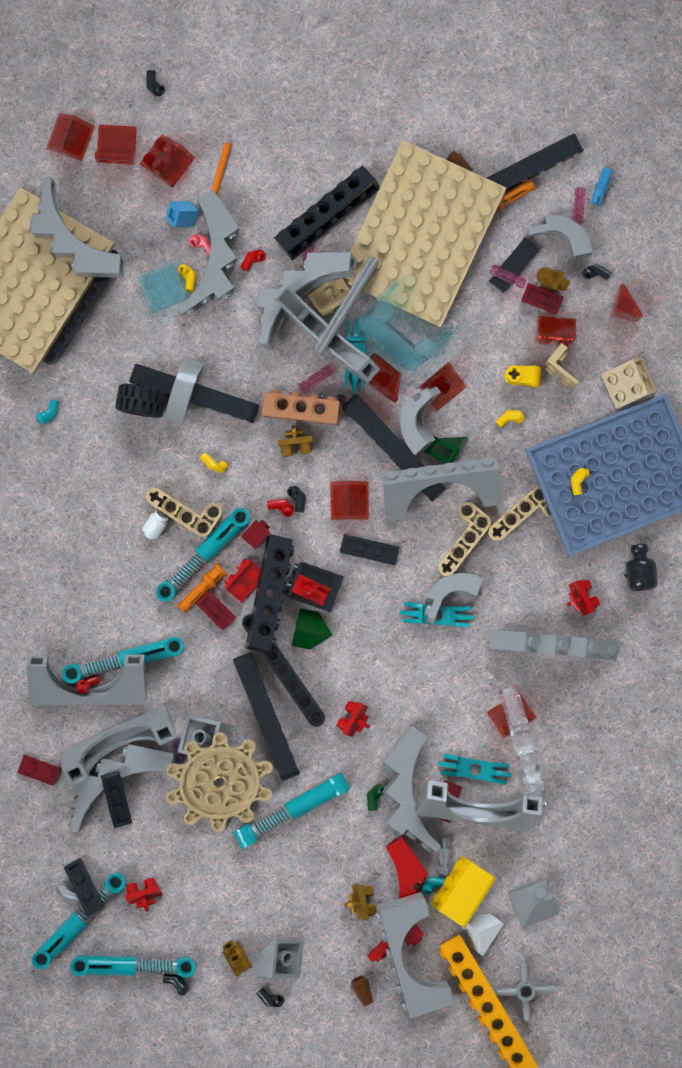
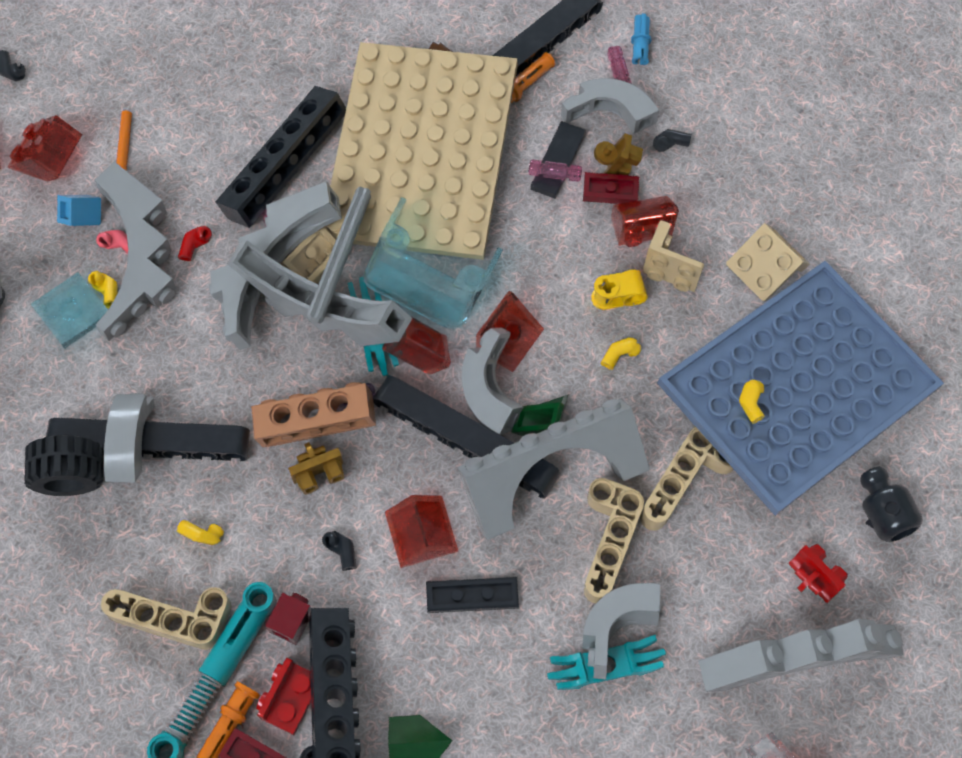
camera: 15 degrees left, 20 degrees down
(155, 525) = (126, 649): white brick -> none
(281, 504) = (319, 565): red arm -> none
(310, 589) = (397, 678): red hips -> none
(316, 378) = (324, 372): clear pink axle -> none
(319, 575) = (402, 674): black panel -> none
(625, 306) = (729, 162): clear red slope -> none

